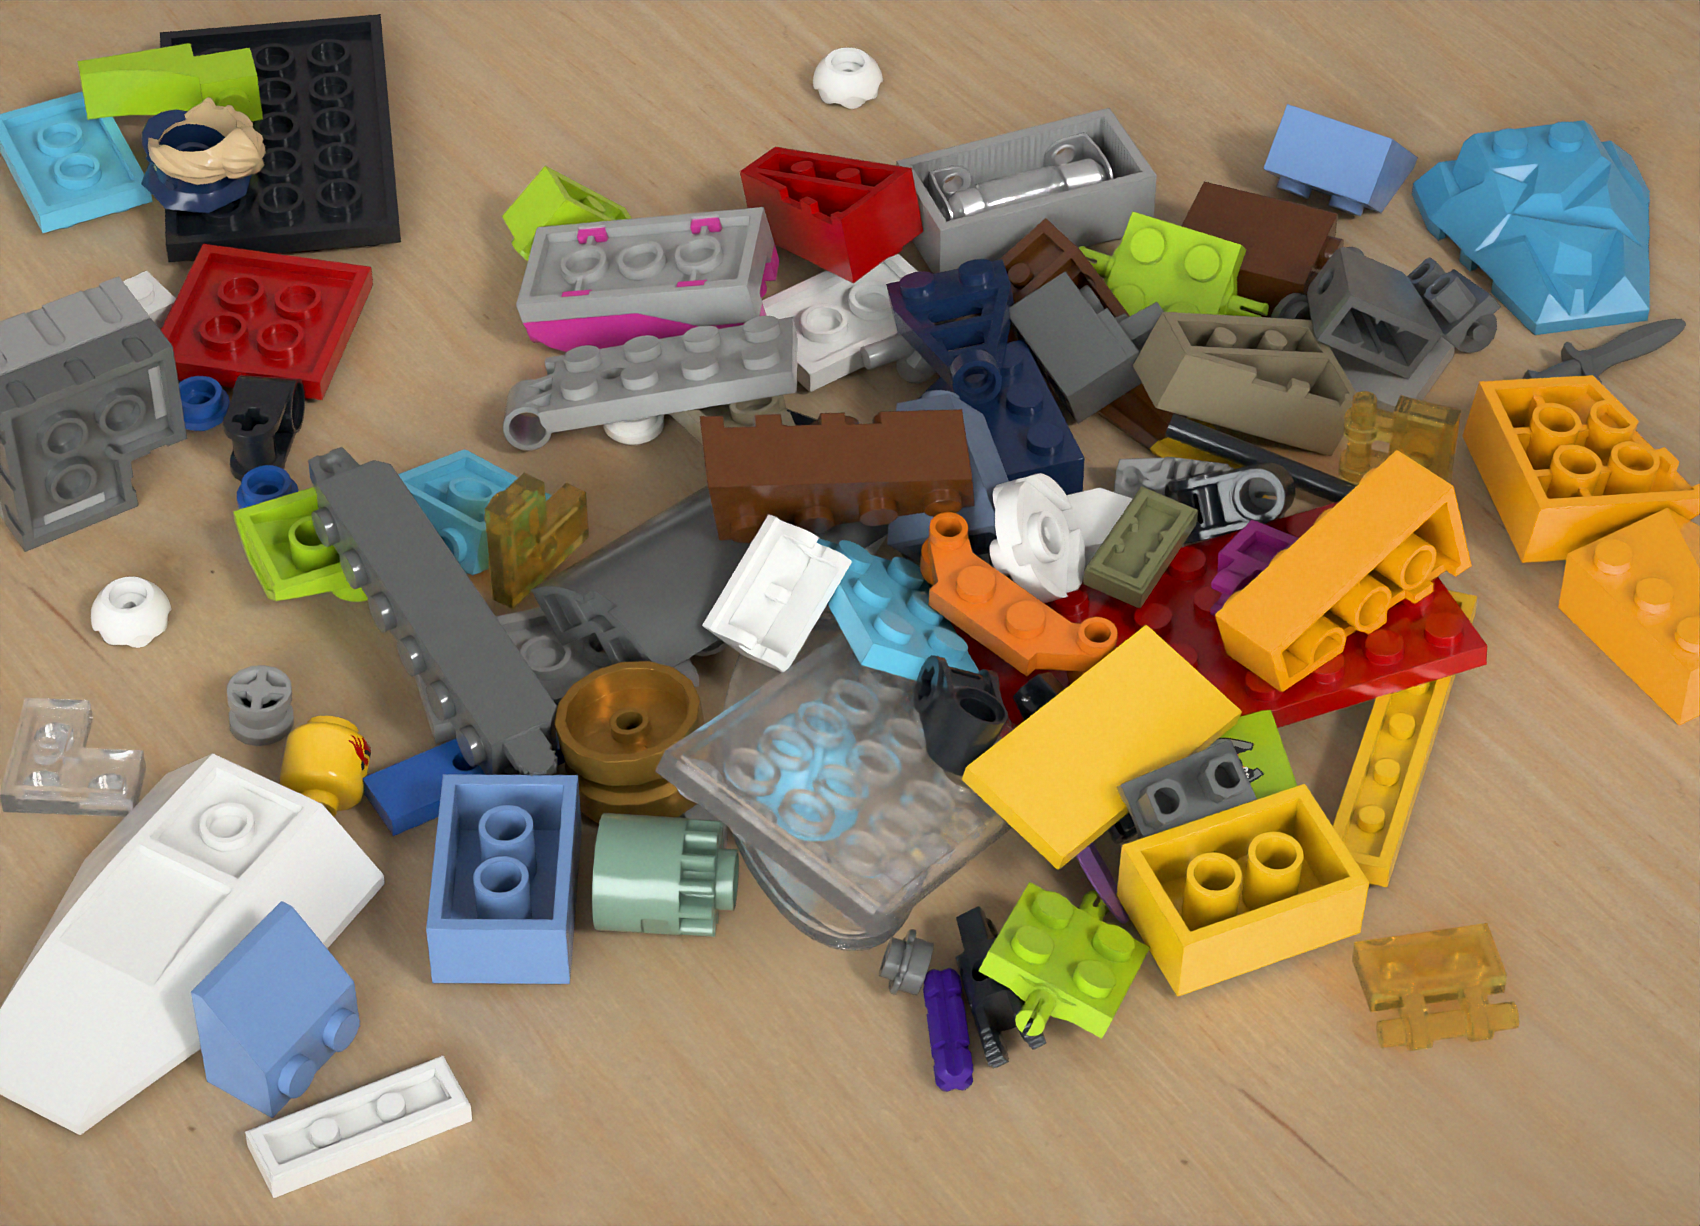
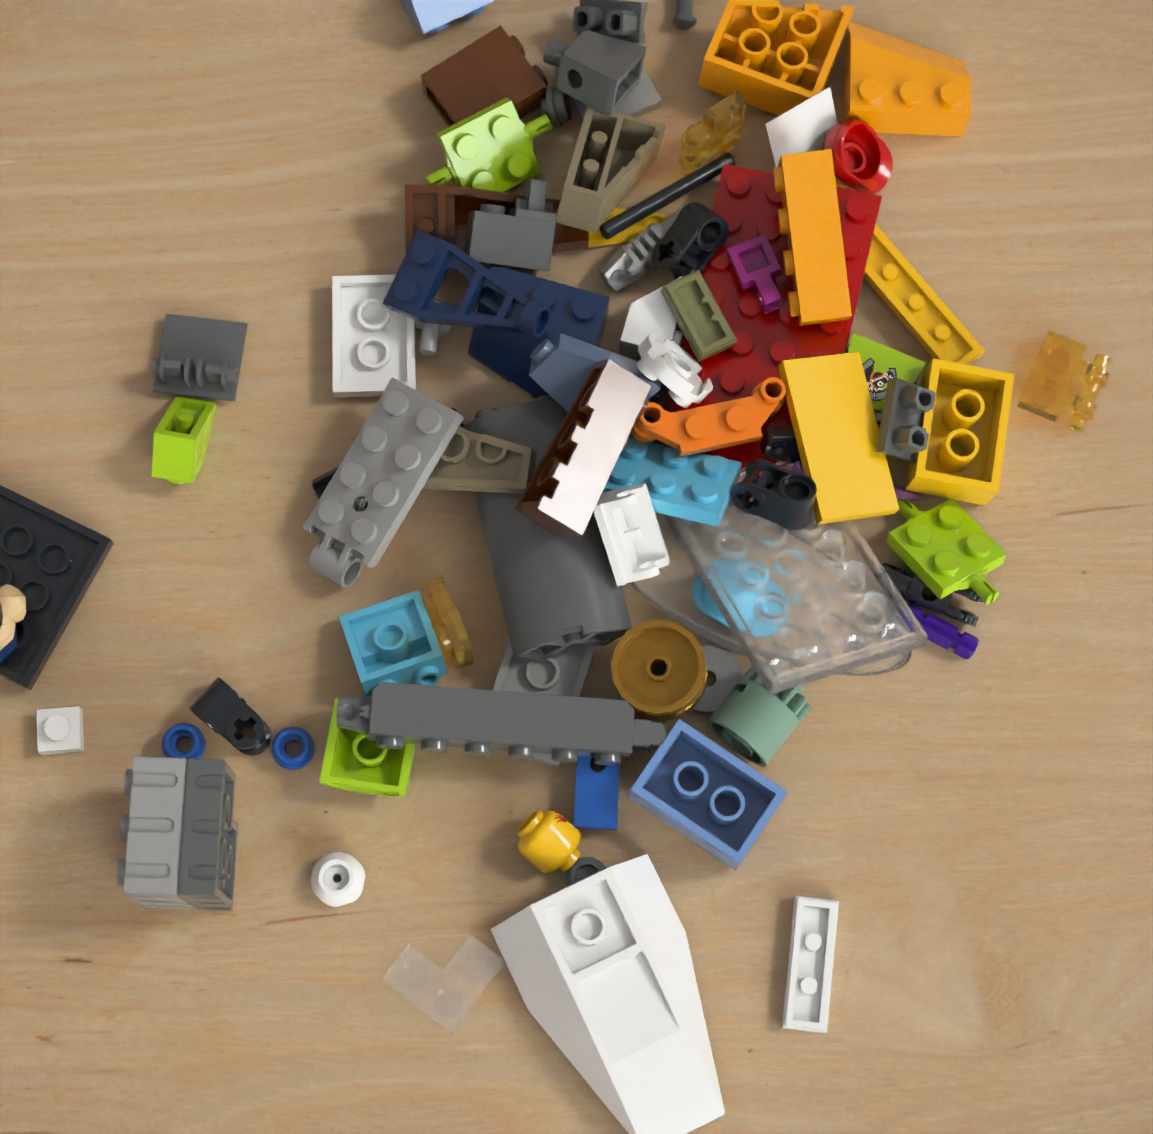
camera: 60 degrees left, 30 degrees up
(260, 705) = (474, 841): light grey wheel -> none
(265, 316) = (135, 667): red plate -> none
(274, 1012) = (731, 971): medium blue slope -> none
(646, 277) = (283, 432): light grey piece -> none
(679, 188) = (199, 357): none -> dark grey hinge
(834, 208) = (300, 294): red wedge -> none
(847, 77) = (154, 208): white plate -> none
(1018, 180) = (355, 176): light grey piece -> none
(1507, 539) = (802, 126): none -> white sticker
(1526, 615) = (859, 156): none -> red hat

